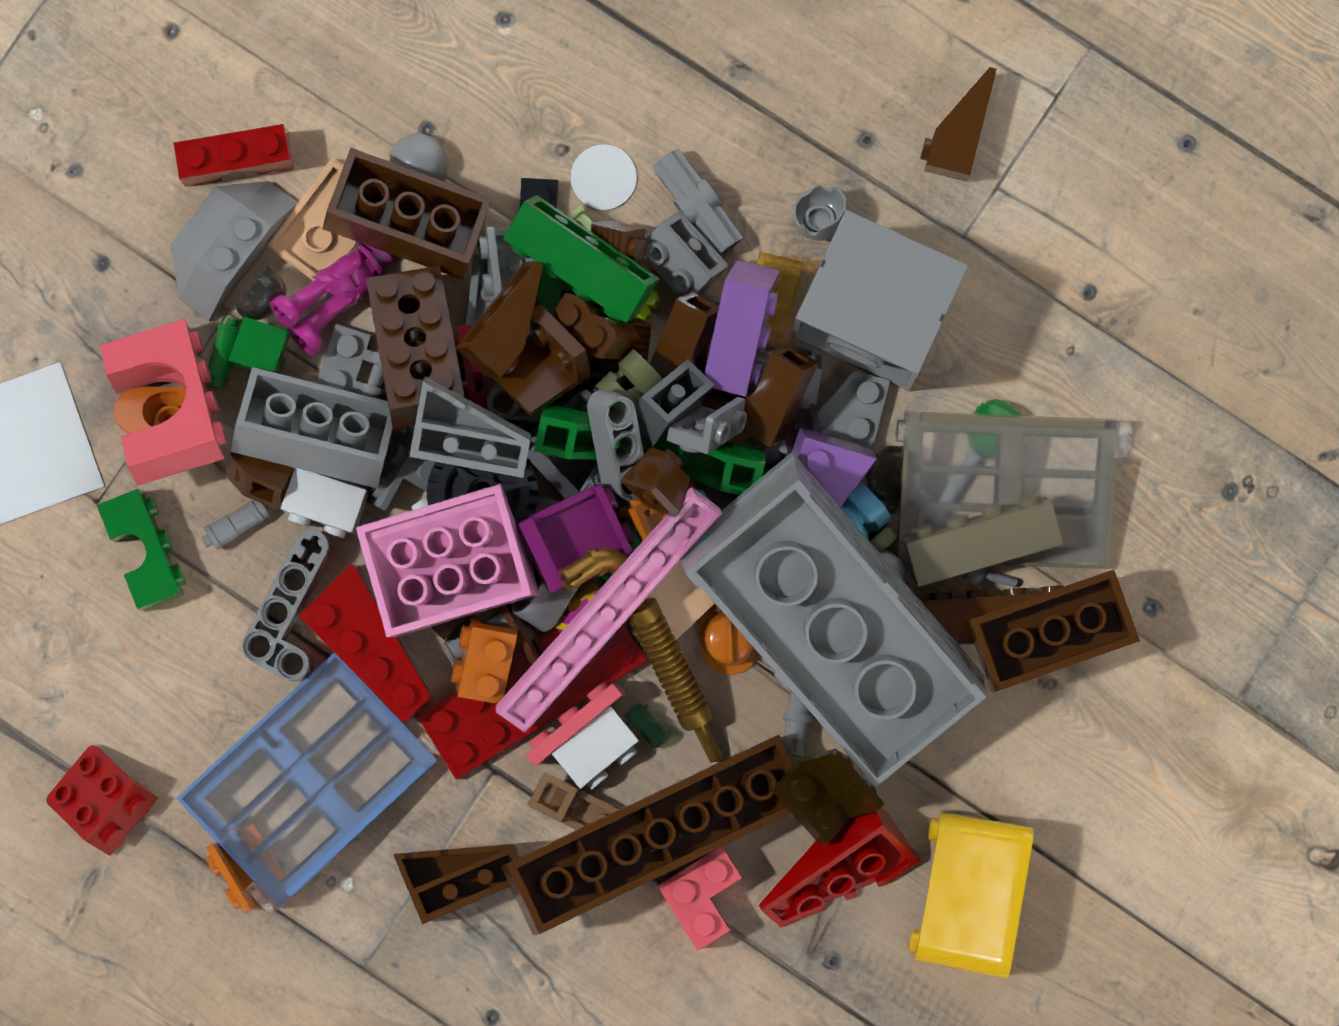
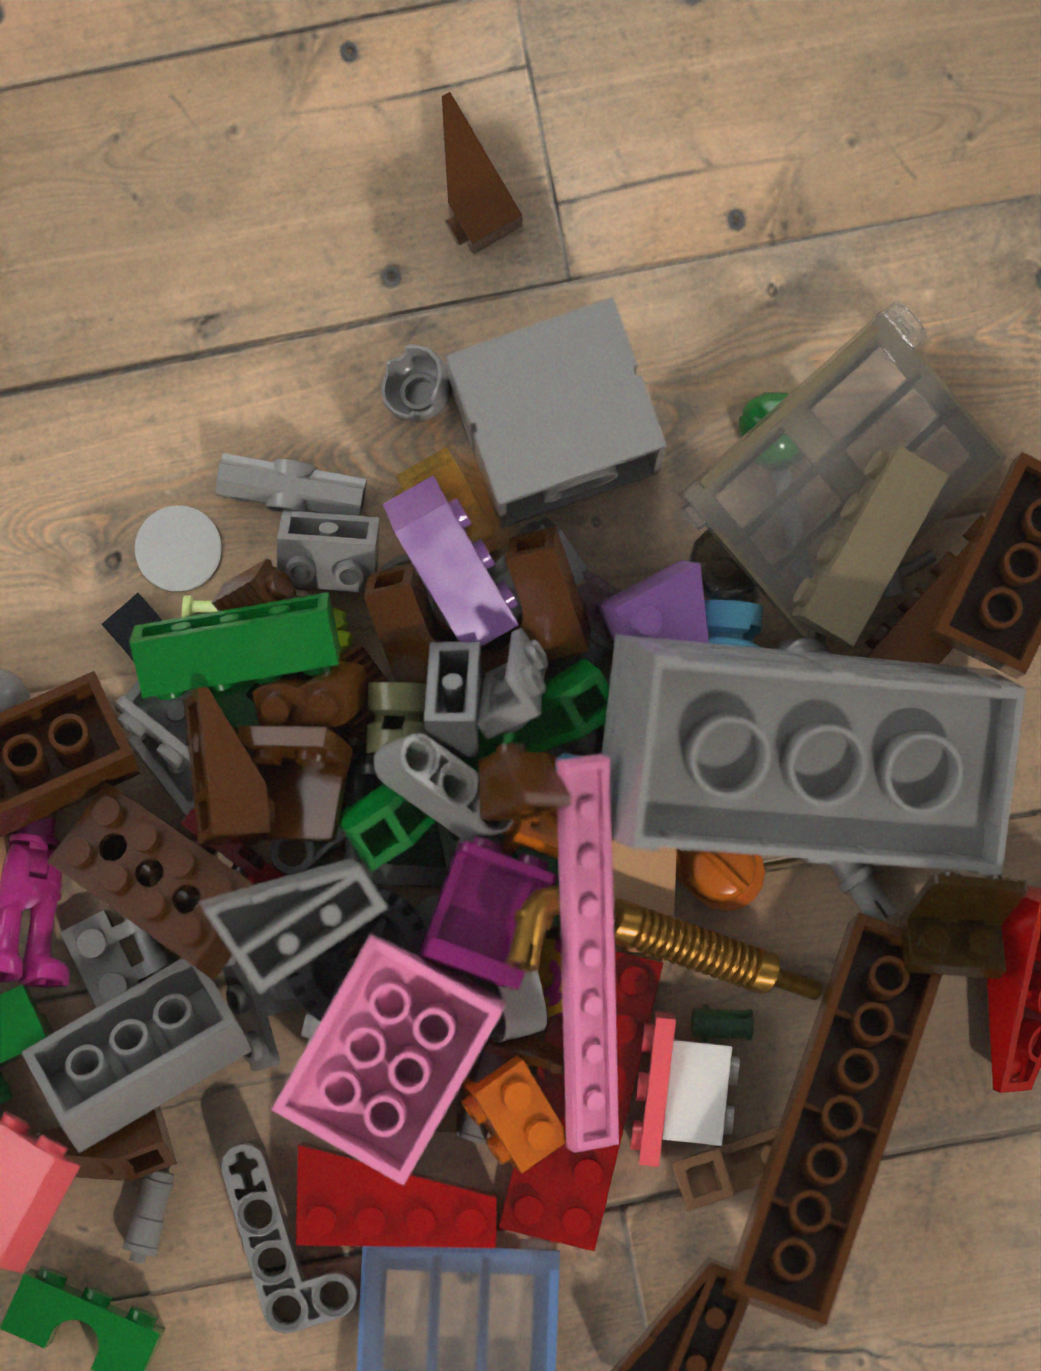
camera: 45 degrees left, 0 degrees up
(325, 502) = (215, 1111): white brick -> none
(690, 894) = (922, 1143): coral brick -> none
(855, 409) = (628, 538): light grey wing -> none
(883, 537) = (772, 632): olive tile -> none

